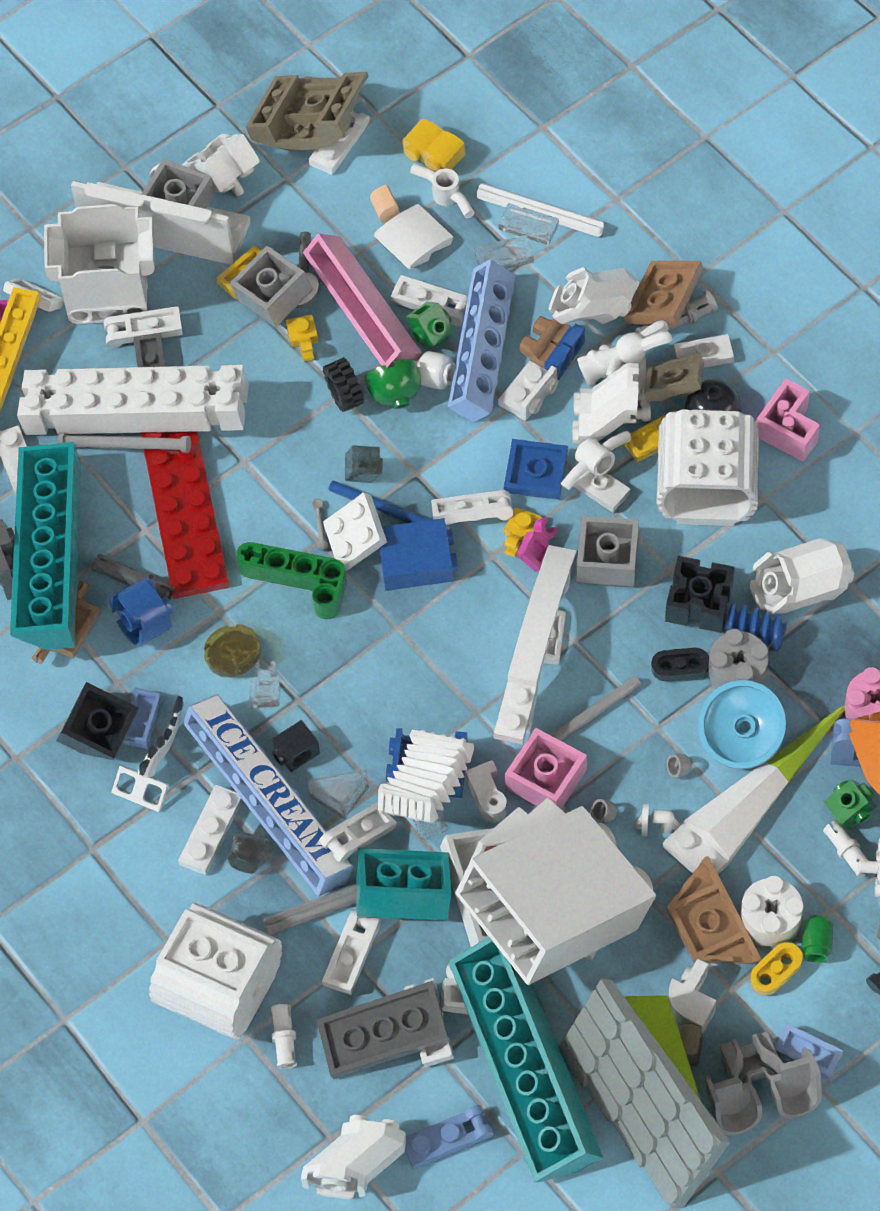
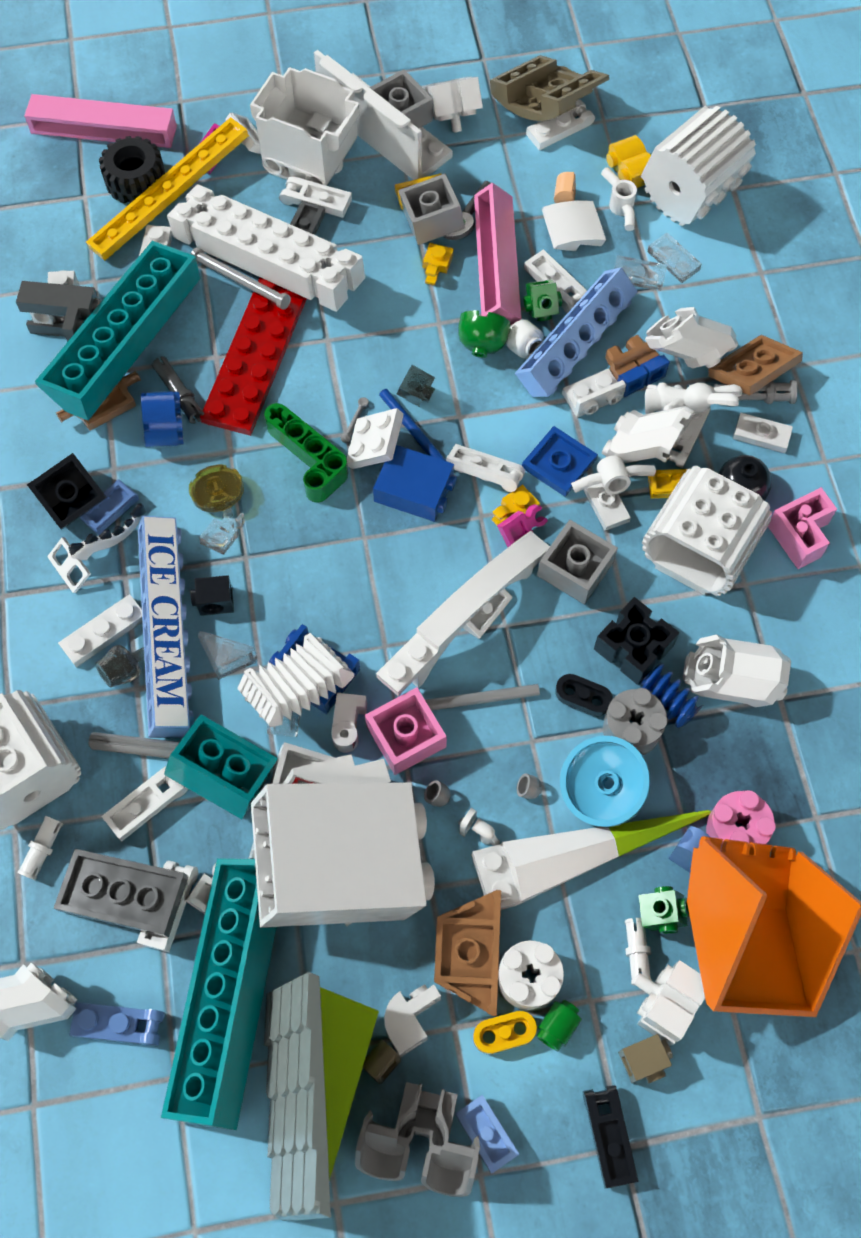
camera: 25 degrees right, 5 degrees up
(343, 384) = (440, 313): black tyre -> none
(357, 832) = (209, 699): white plate -> none
(506, 125) = (698, 165): none -> white piece
(566, 218) = (708, 266): white axle -> none
(674, 378) = (722, 440): dark tan plate -> none

